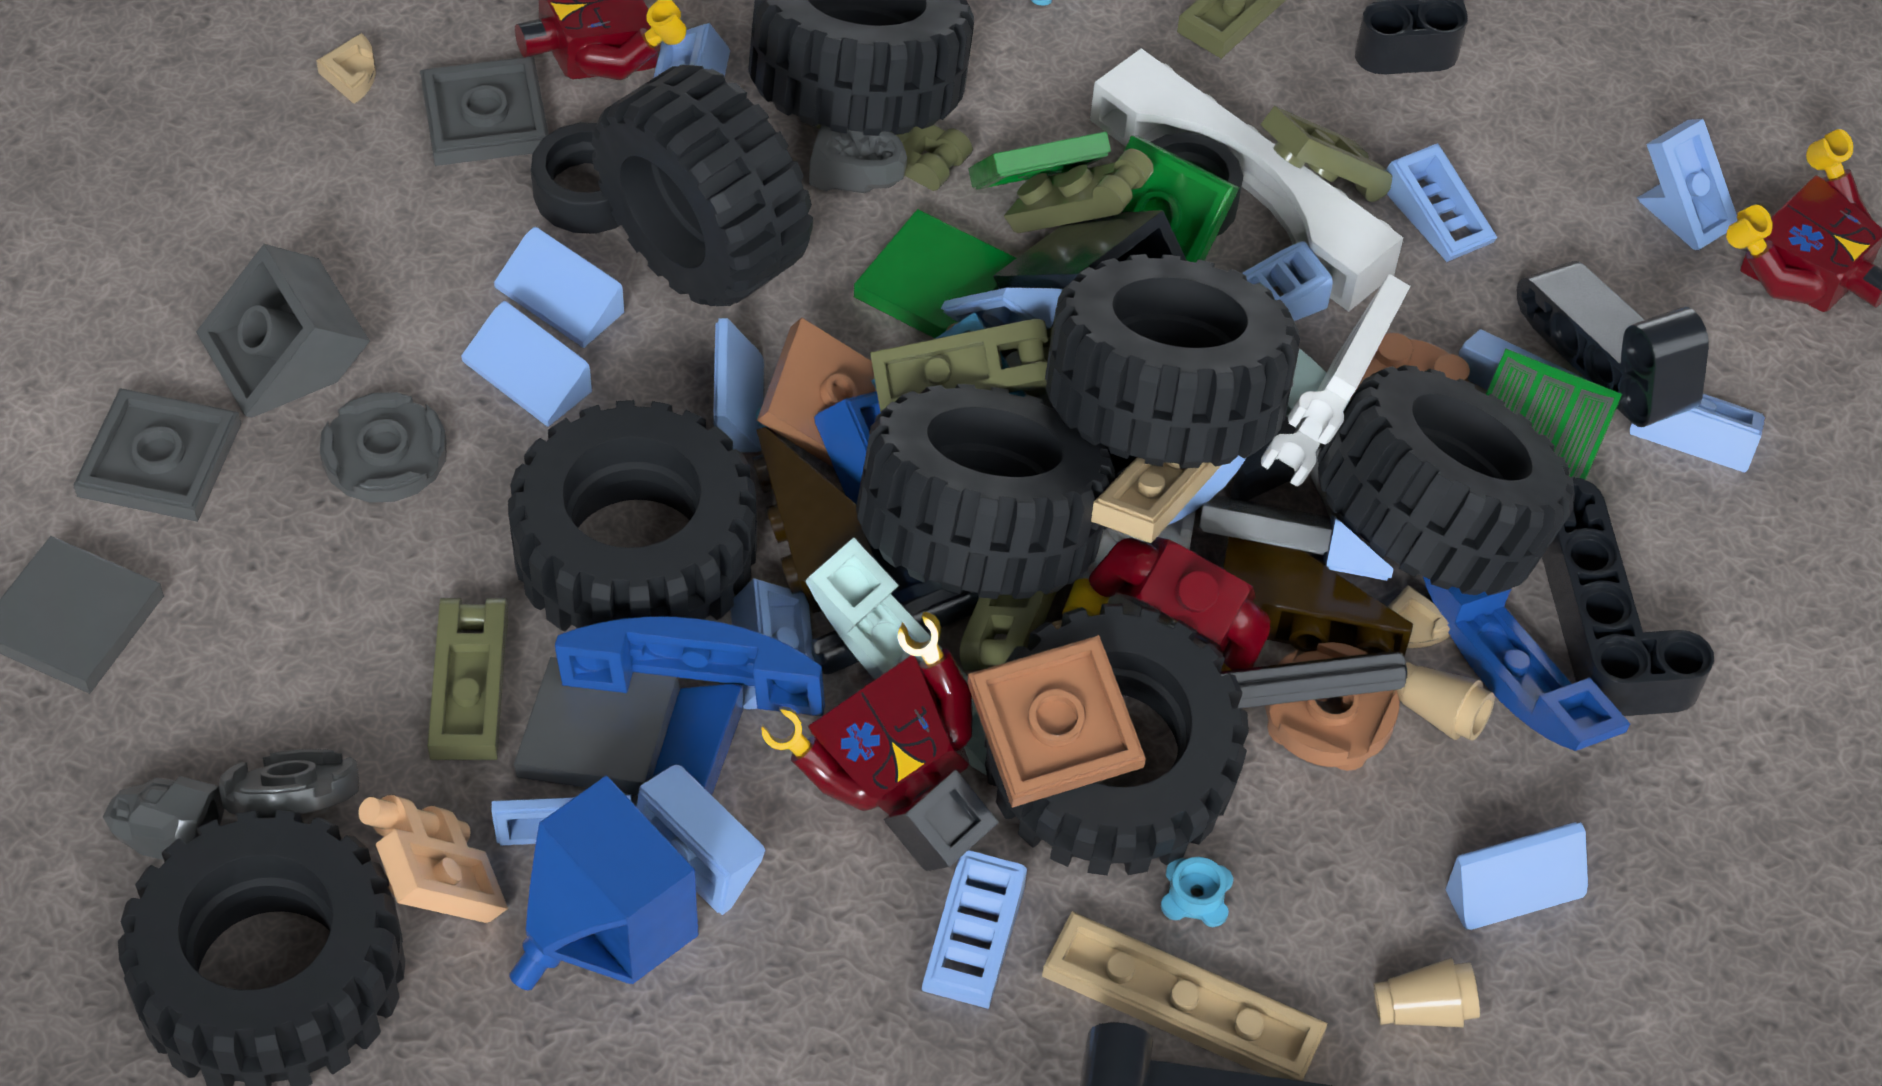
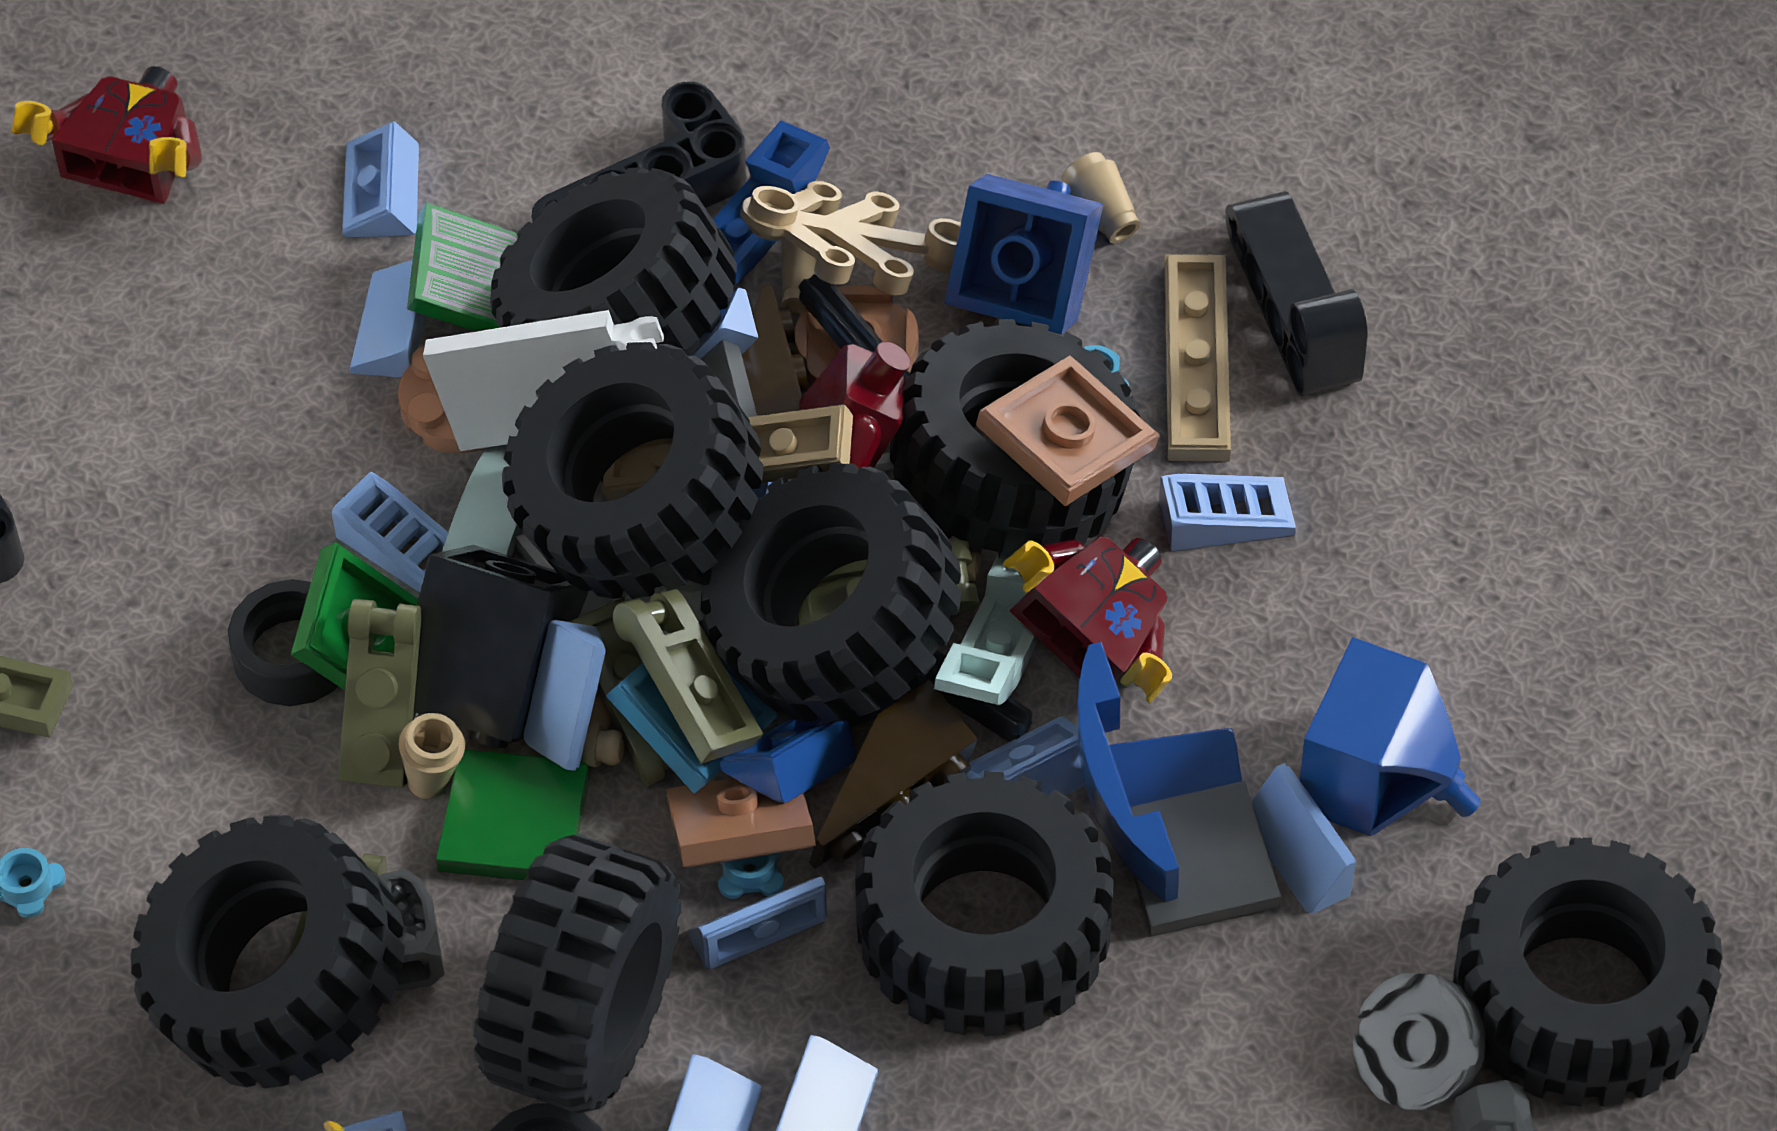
camera: 110 degrees left, 0 degrees up
(430, 860) = (1416, 886): light nougat plate -> none
(468, 680) = (1209, 981): olive plate -> none
(703, 834) = (1269, 719): light blue slope -> none
(942, 822) = (1166, 529): black panel -> none
(1006, 214) = (430, 753): none -> tan cone
(1044, 158) = (339, 753): green tile -> none
(1152, 101) = (192, 704): white arch -> none
(1326, 153) = (221, 508): olive plate -> none
(1361, 860) = (1023, 252): none -> blue piece
(1444, 181) = (186, 475): light blue slope -> none
(1461, 726) = (856, 228): none -> tan plant
(1519, 876) = (935, 167): light blue slope -> none
(1650, 361) = (351, 234): black beam -> none
(1691, 186) = (94, 251): light blue slope -> none

